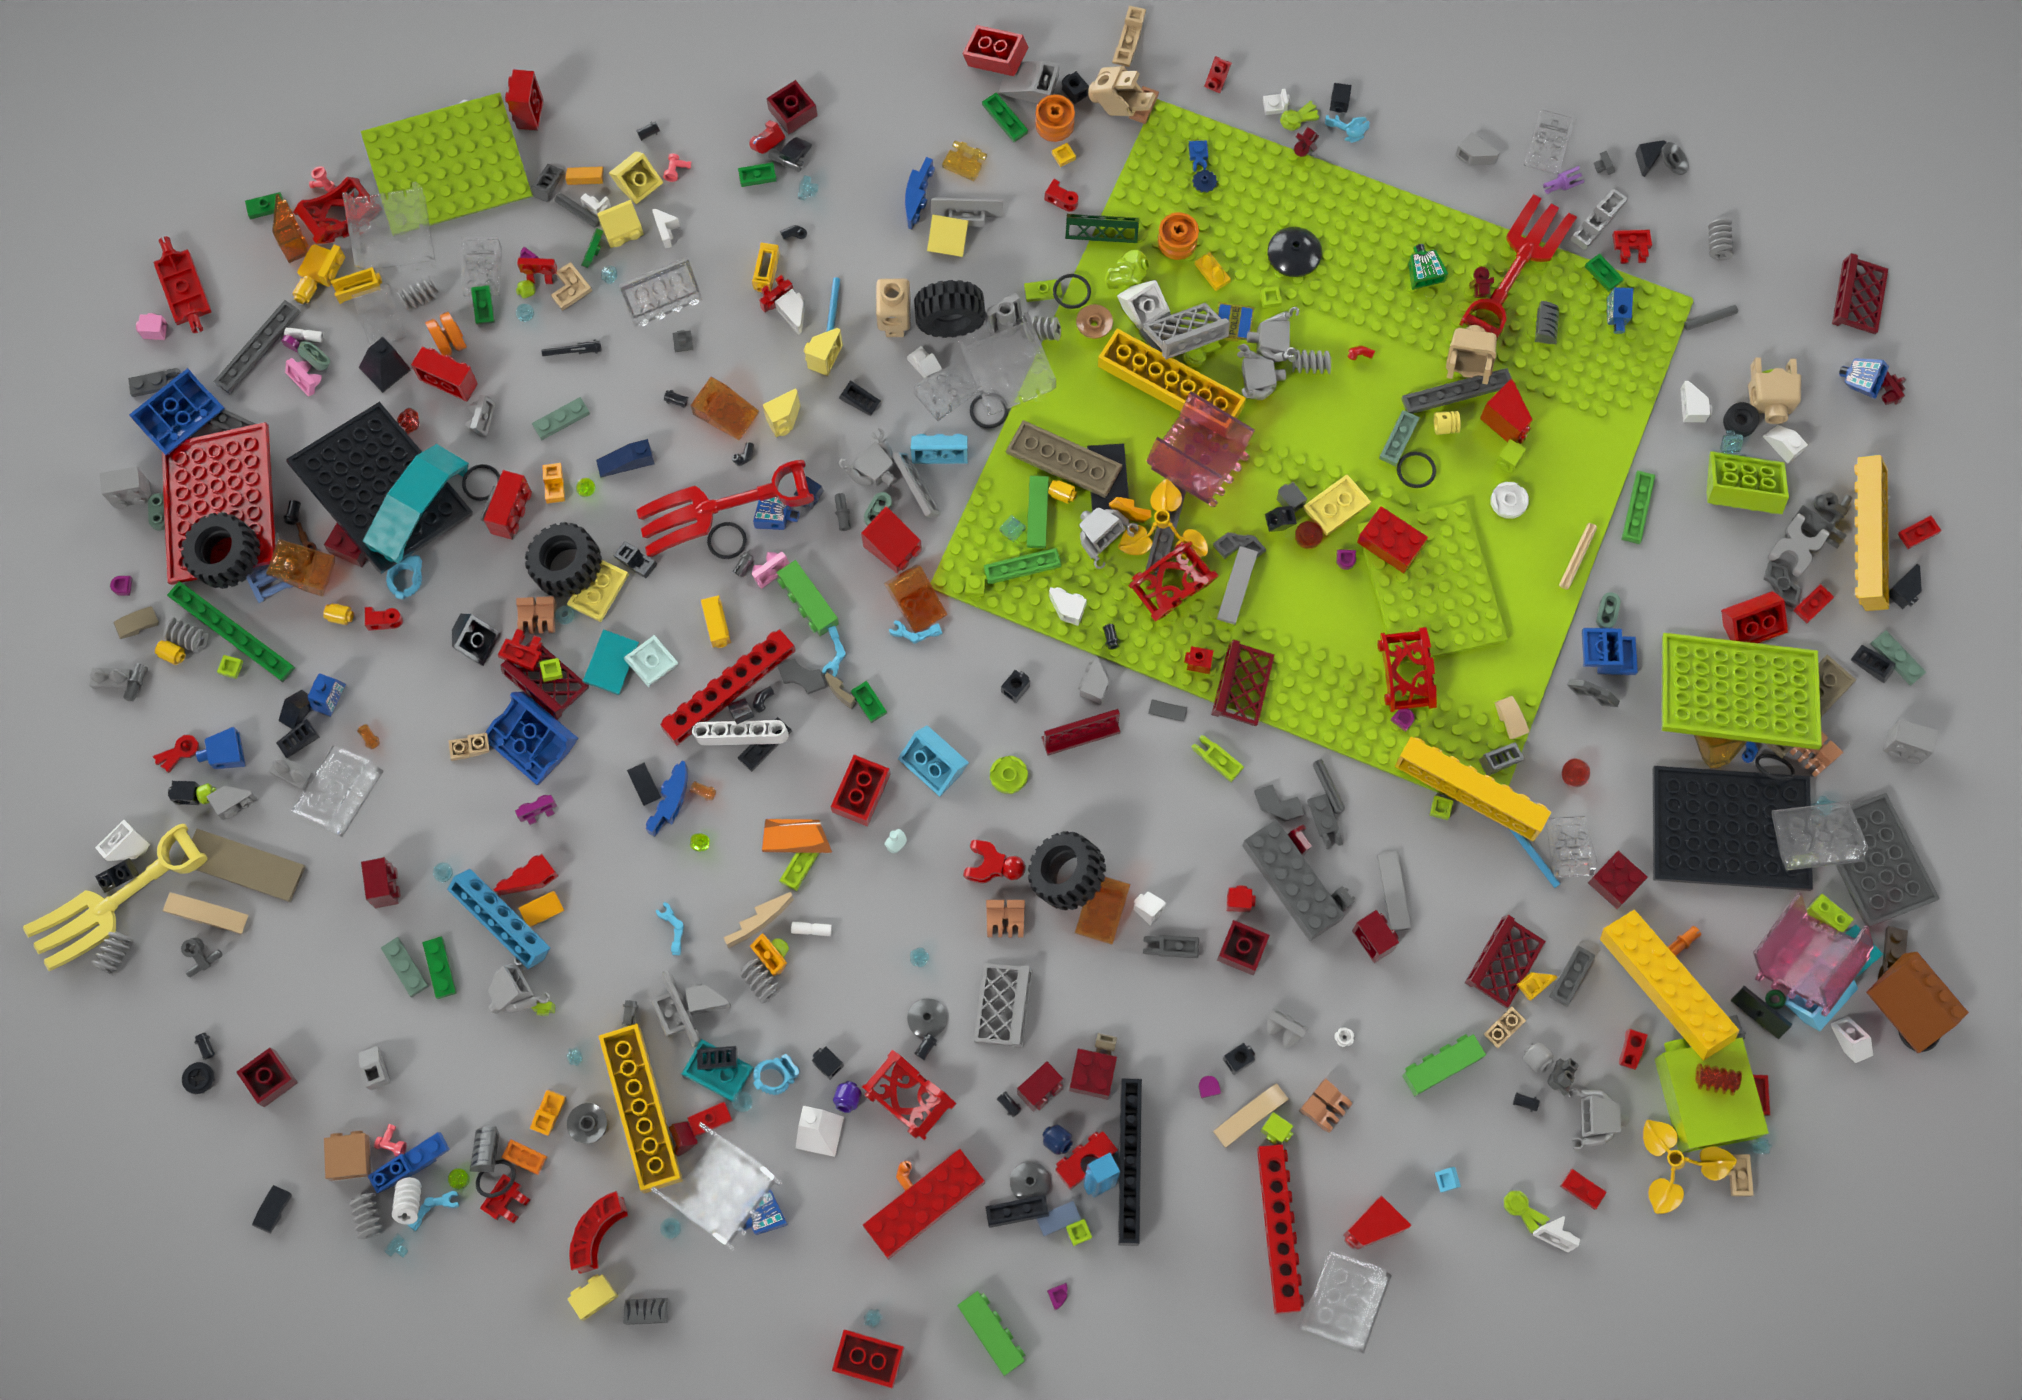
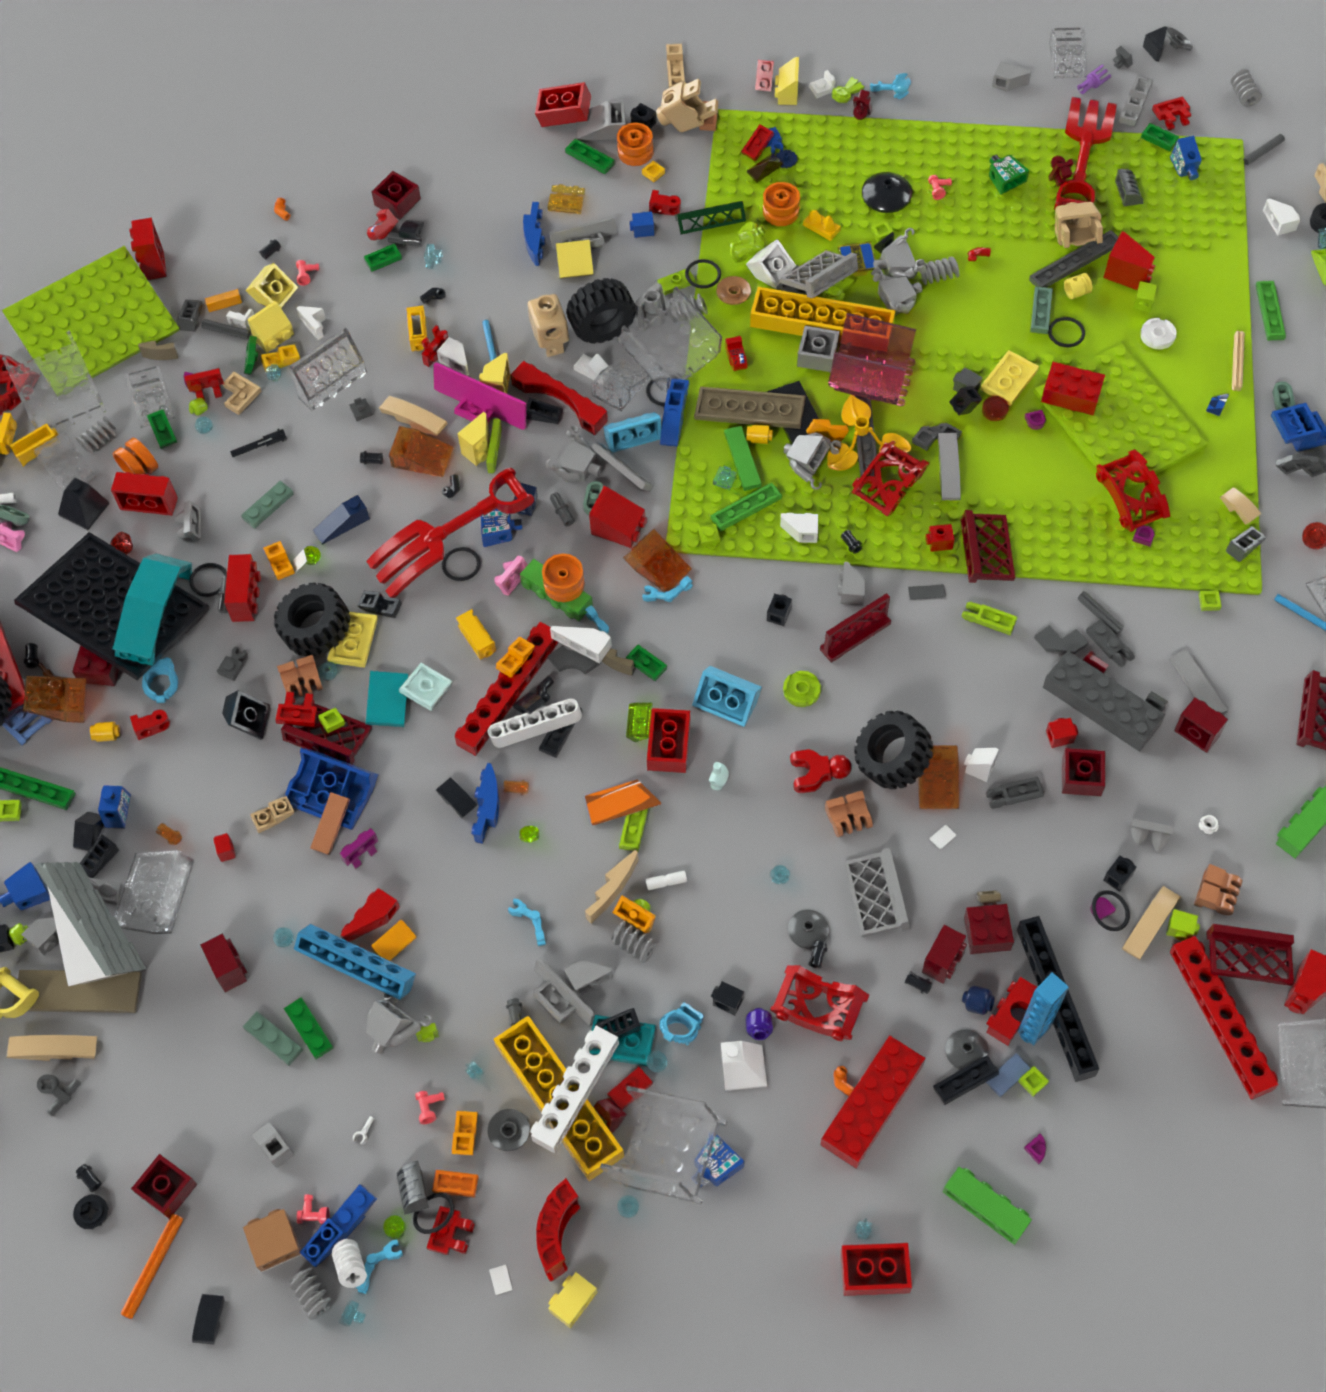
camera: 15 degrees left, 10 degrees down
(237, 1145) = (151, 1266): none -> orange axle
(264, 818) = (87, 932): none -> light grey piece
(414, 767) = (224, 847): none -> red slope
(459, 1081) = (364, 1131): none -> white hand
(475, 581) = (232, 665): none -> dark grey plate
(498, 213) = (161, 352): none -> dark tan slope
(518, 774) = (330, 823): none -> nougat tile
(521, 1070) = (427, 1116): none -> coral piece
(537, 1257) = (500, 1279): none -> white sticker
(572, 491) = (299, 561): none -> white sticker
(622, 259) = (285, 356): none -> yellow slope
(645, 1311) = (632, 1297): dark grey brick -> none
(672, 85) = (279, 209): none -> orange arm
(697, 1077) = (552, 1138): none -> white brick
(730, 365) = (413, 415): none -> tan slope
(742, 660) = (515, 657): none -> light orange slope
(743, 564) = (484, 579): dark grey pin -> none
(798, 370) = (478, 398): none -> dark pink bracket
(799, 422) = (494, 445): none -> lime tile
(814, 592) = (563, 577): none -> orange wheel
(816, 666) = (586, 641): none -> white slope
(839, 760) = (638, 721): none -> clear neon green slope
(858, 360) = (531, 380): none -> red arch
(986, 440) = (673, 412): none -> blue slope
(1030, 214) = (642, 224): none -> blue brick
(1071, 395) = (736, 353): none -> red leg
(1087, 967) = (942, 837): none -> white sticker
(1154, 414) = (817, 348): none -> light grey brick
(1179, 185) = (765, 167): none -> dark brown slope
(1180, 155) = (757, 142): none -> red plate
(1231, 1089) = (1127, 913): none -> black tyre
(1238, 91) = (787, 83): none -> light yellow slope
(1268, 312) = (884, 242): none -> black slope
(1335, 1163) = (1248, 938): none -> dark red fence
(1340, 97) = (876, 66): black brick -> none
(1347, 269) = (938, 192): none -> coral piece
(1473, 788) = (1234, 572): yellow brick -> none
(1537, 597) = (1216, 404): none -> dark blue sticker

